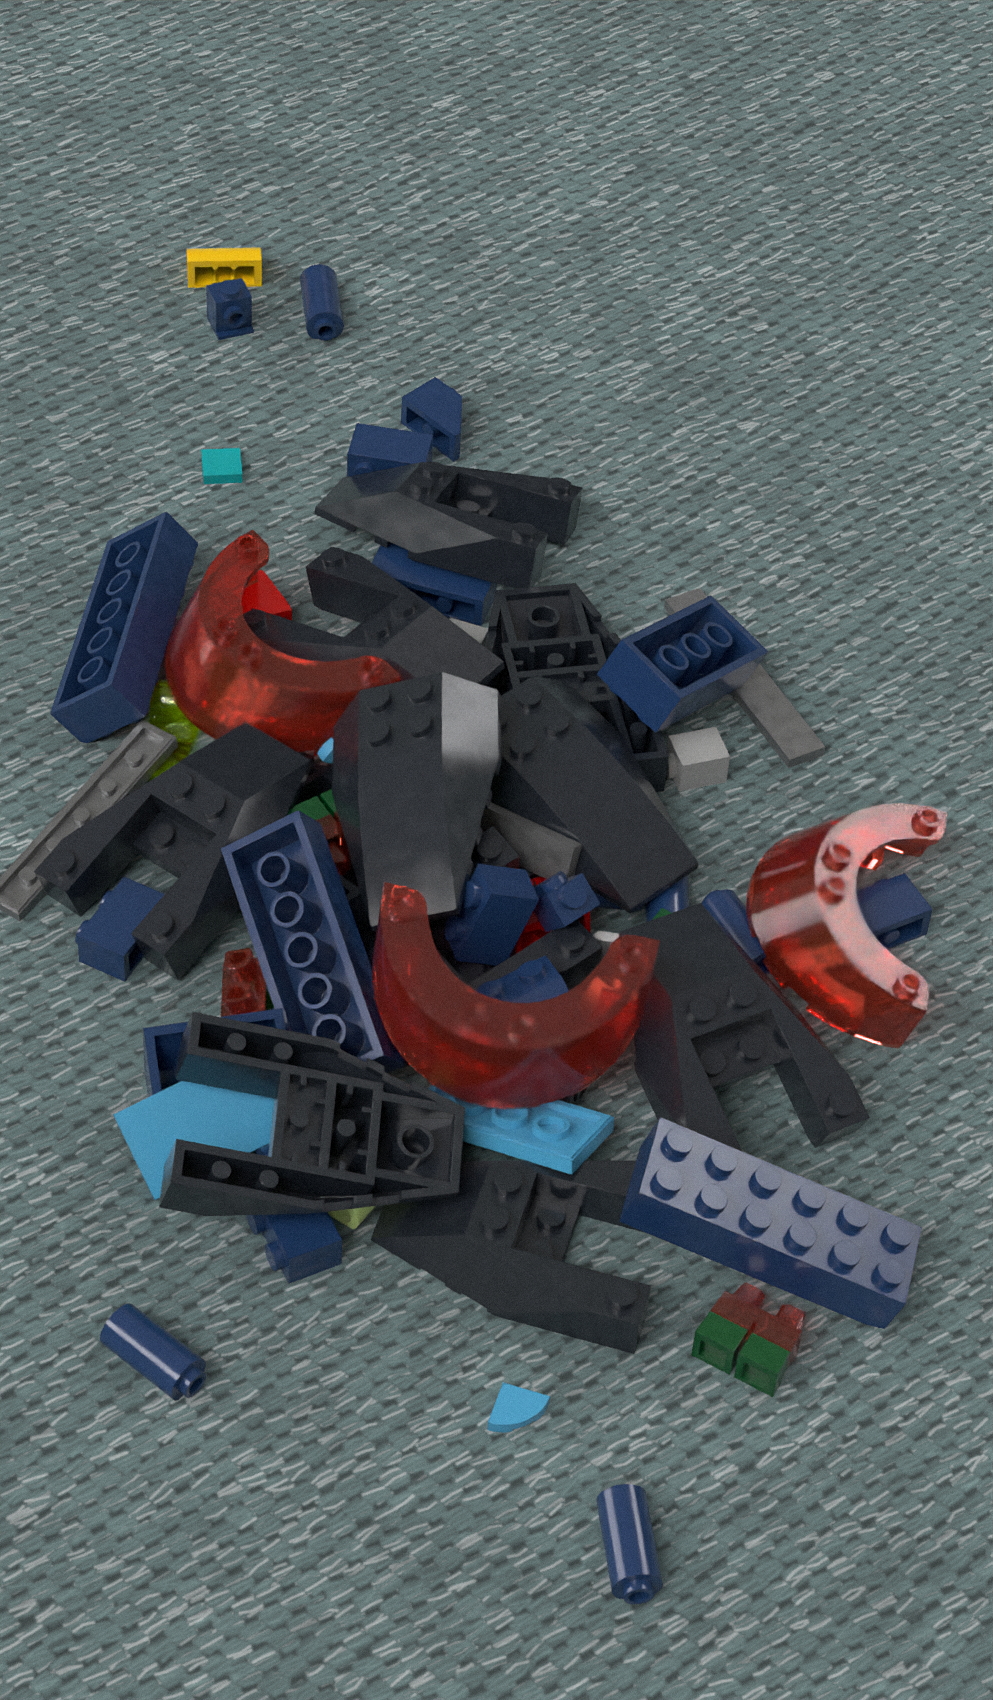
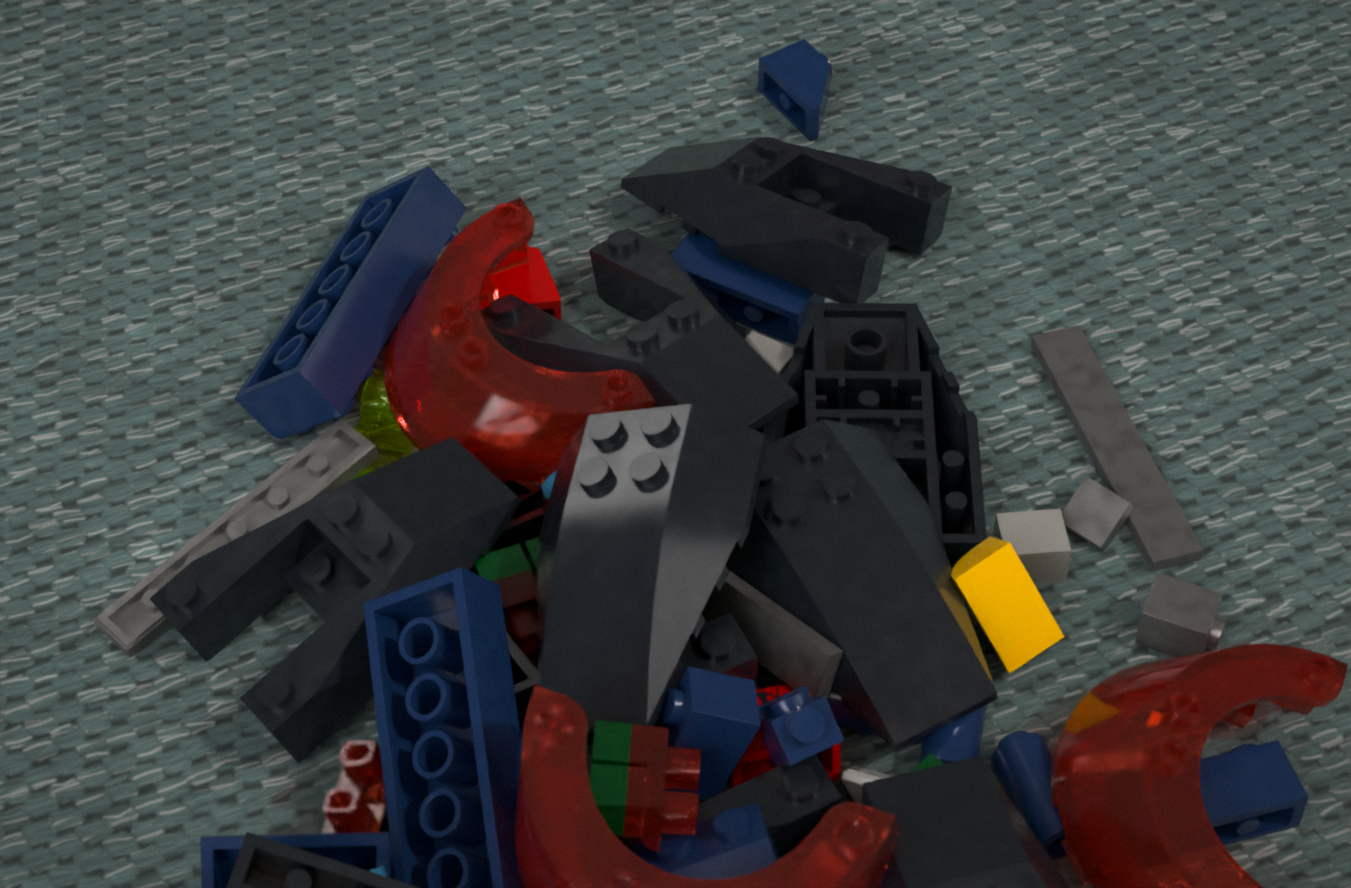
camera: 15 degrees right, 0 degrees up
(106, 938) = (214, 693): dark blue brick -> none
(221, 466) = (532, 120): teal tile -> none
(385, 448) = (726, 116): dark blue brick -> none
(469, 947) = (630, 780): none -> clear red hips
(682, 663) = (1026, 422): dark blue brick -> none
(690, 798) = (1005, 602): none -> yellow brick
(741, 728) = (1096, 513): none -> flat silver tile
(817, 796) = (1180, 618): none -> flat silver brick

